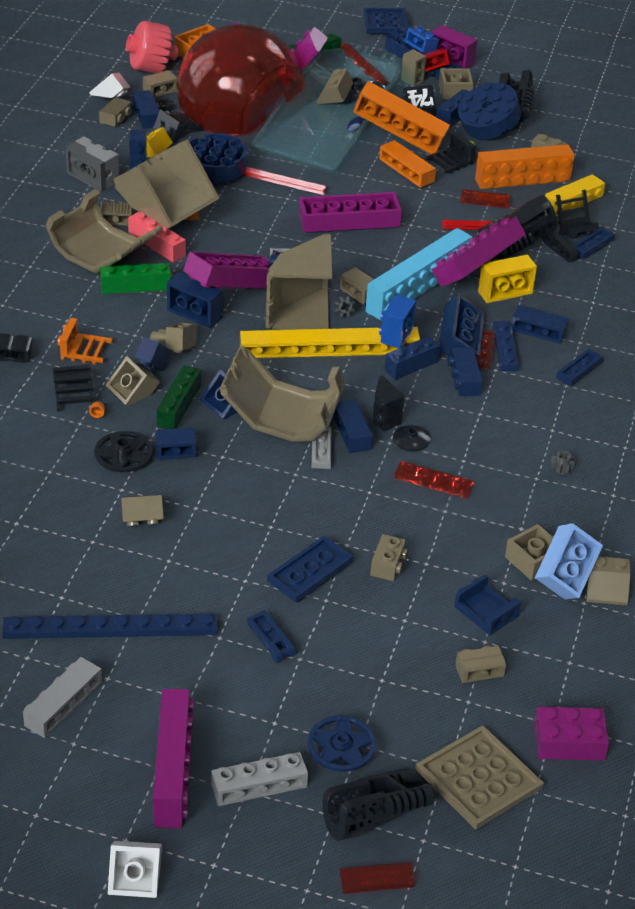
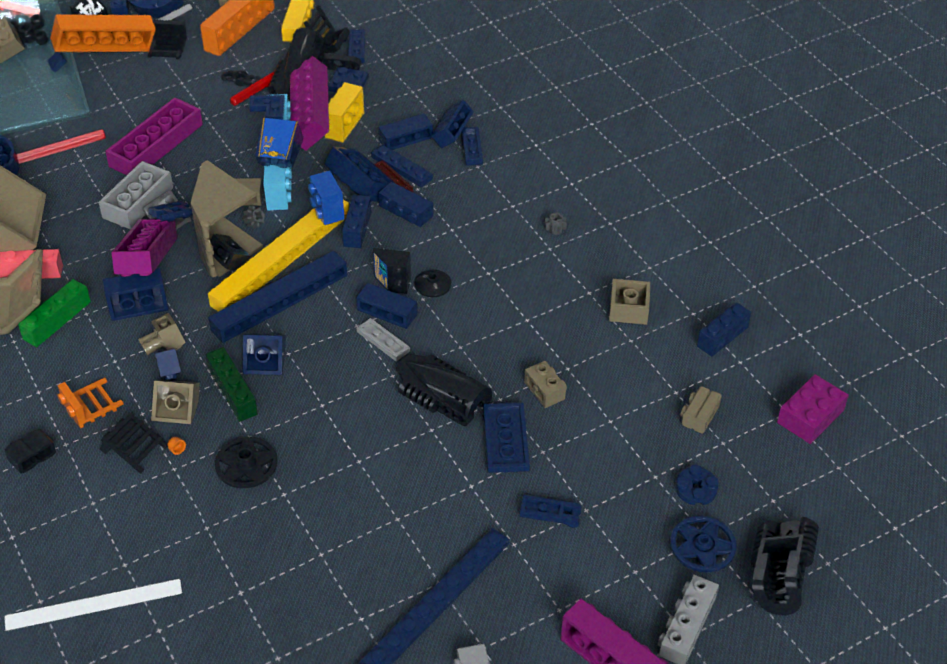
camera: 45 degrees left, 5 degrees up
(142, 509) = (328, 495): dark tan slope -> none
(175, 443) = (282, 422): dark blue brick -> none
(276, 405) = (327, 328): dark tan windscreen -> none
(281, 235) = (133, 193): none -> light grey brick
(289, 313) = (228, 252): none -> black brick
(296, 367) = (277, 296): none -> dark blue brick
(311, 501) = (432, 381): none -> black connector
(376, 878) = (842, 616): clear red tile -> none
(405, 699) = (700, 476): none -> dark blue plate
(407, 163) = (144, 69): orange brick -> none
(409, 261) = (279, 142): none -> slope
(434, 479) = (491, 302): clear red plate -> none
(443, 235) = (272, 104): none -> dark blue plate
(471, 208) = (240, 74): none -> black piece
(479, 777) = (802, 487): dark tan plate -> none
(484, 140) = (178, 13): none -> light grey tile
(485, 198) = (235, 61): clear red tile -> none
(486, 606) = (648, 366): dark blue panel -> none
(552, 263) = (349, 76): none -> dark blue plate
(568, 561) = (668, 289): light blue brick -> none
(582, 340) = (452, 123): none -> dark blue brick
(584, 627) = (724, 329): none -> dark blue brick
(609, 581) = (691, 285): dark tan slope -> none

